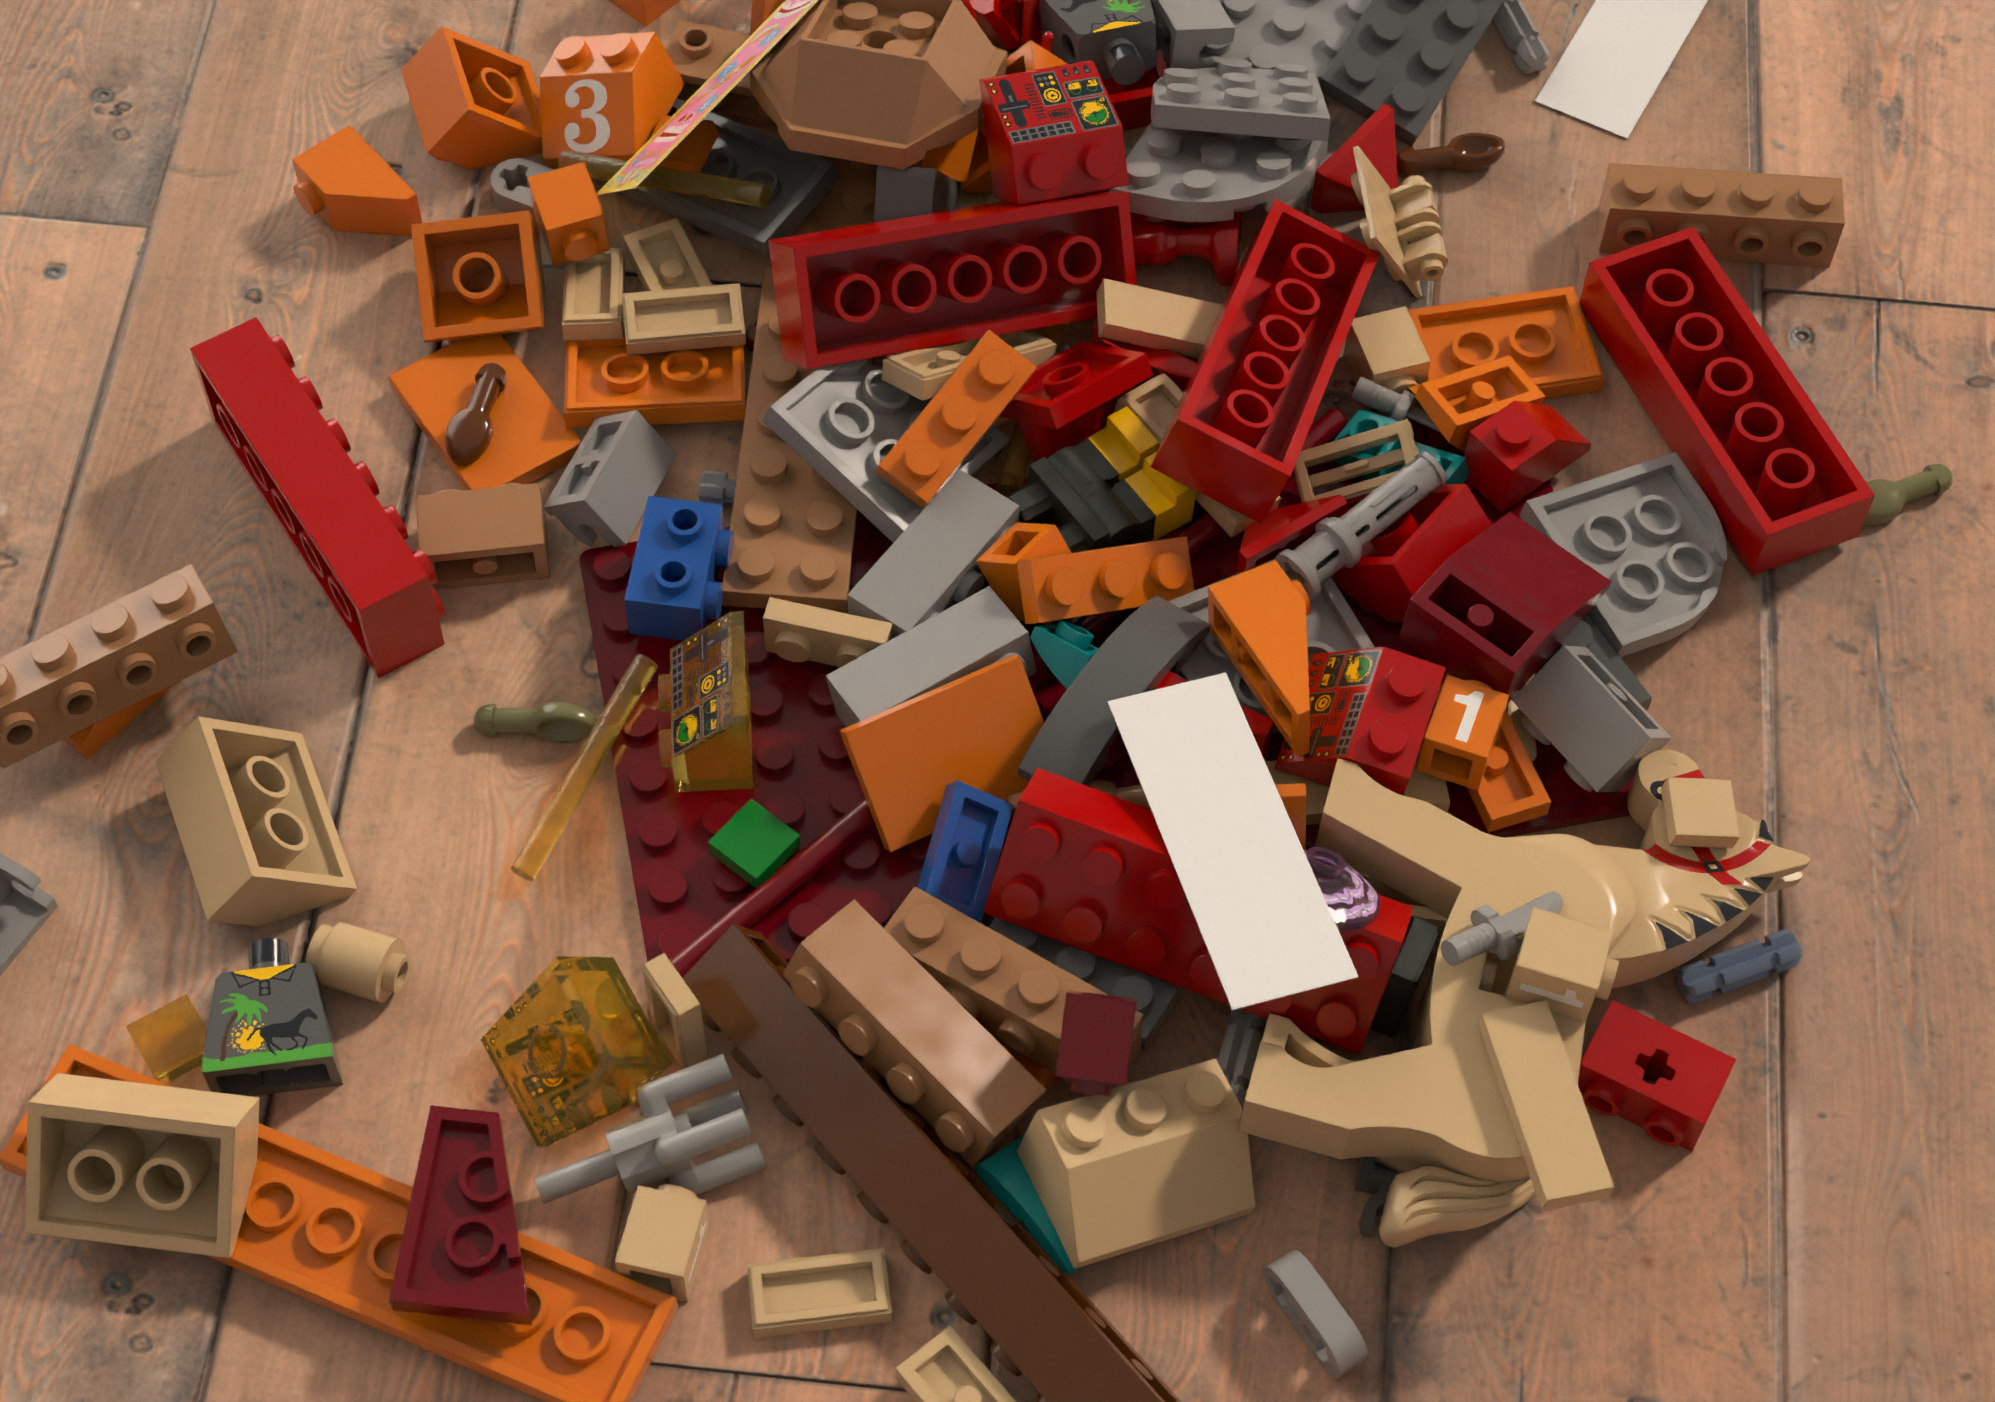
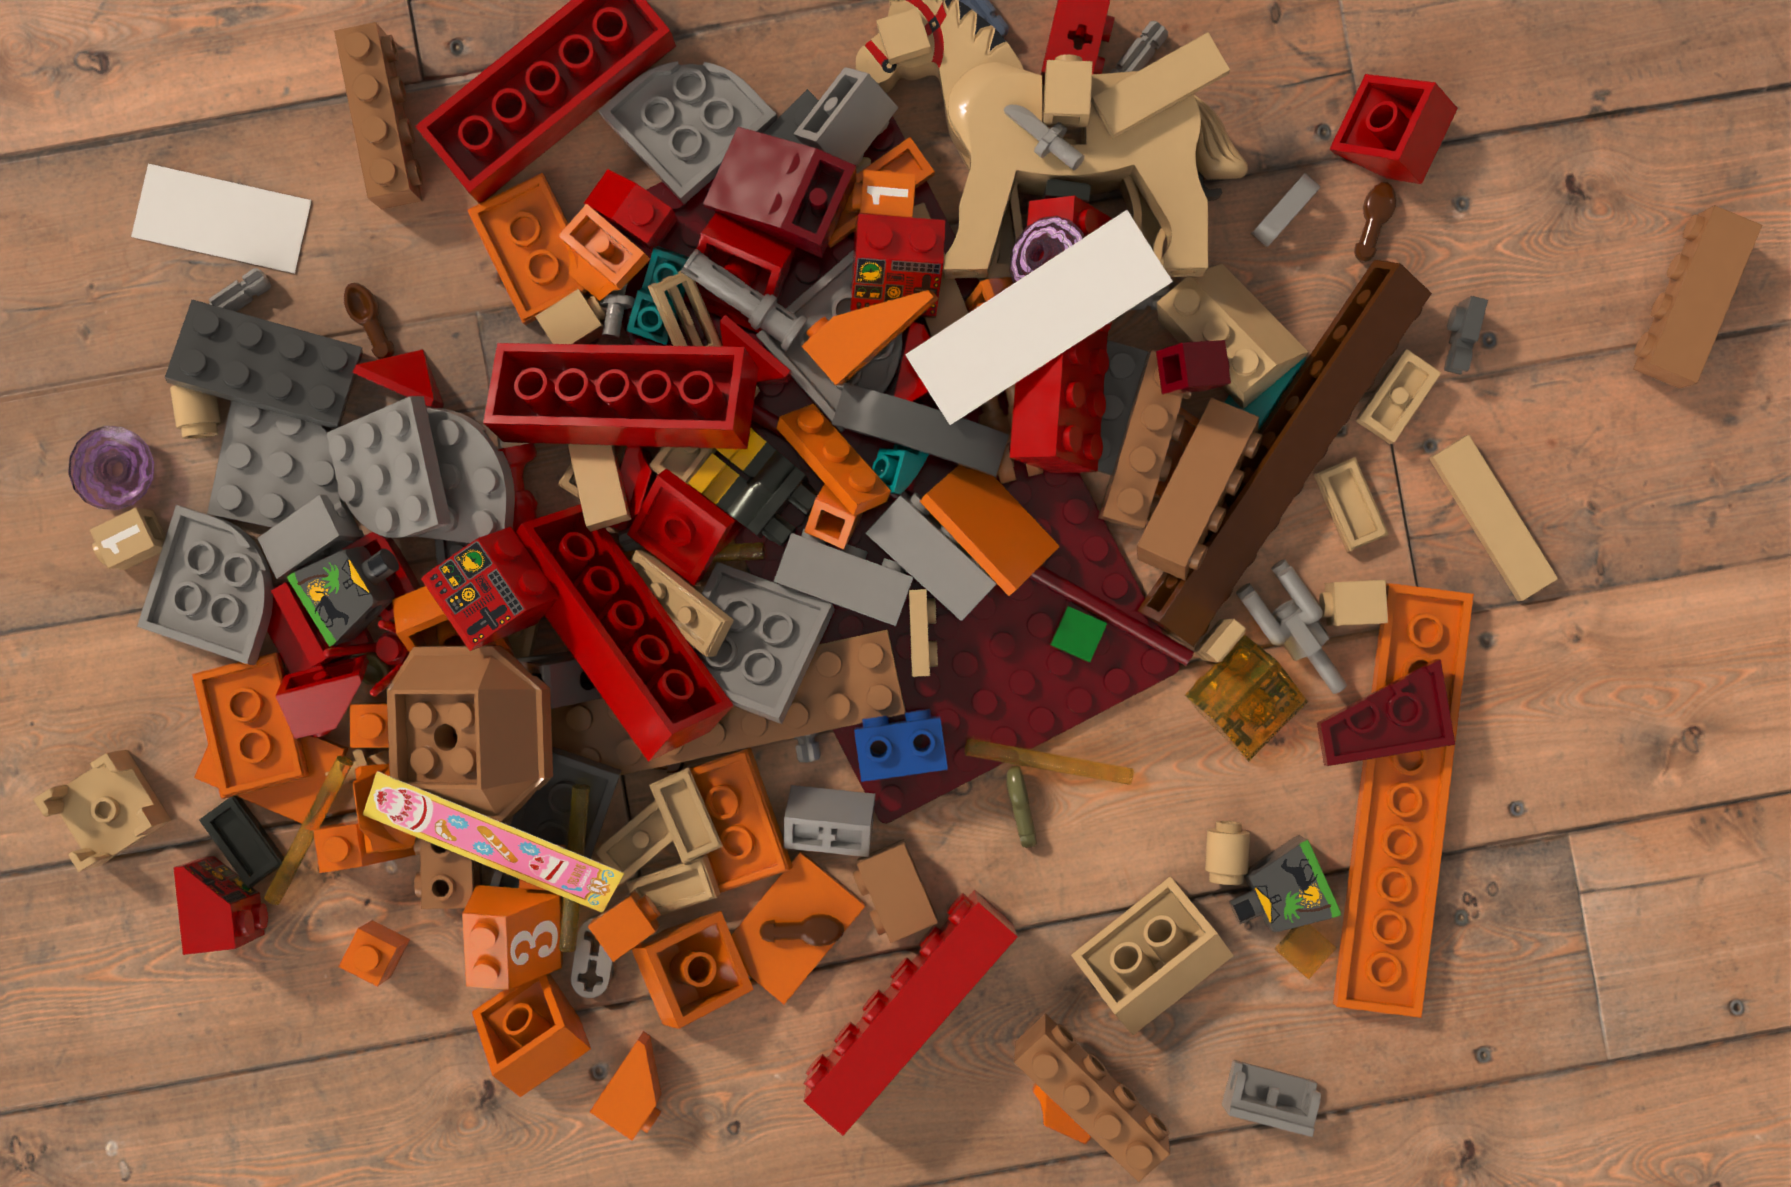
camera: 105 degrees left, 30 degrees up
(139, 1164) = (1410, 927): tan slope -> none
(708, 709) = (1003, 690): clear yellow slope -> none
(956, 419) = (741, 592): orange plate -> none
(965, 848) = (1056, 497): blue plate -> none
(1400, 224) = (477, 342): tan hinge -> none
(1640, 1198) = (1142, 48): none -> light grey axle

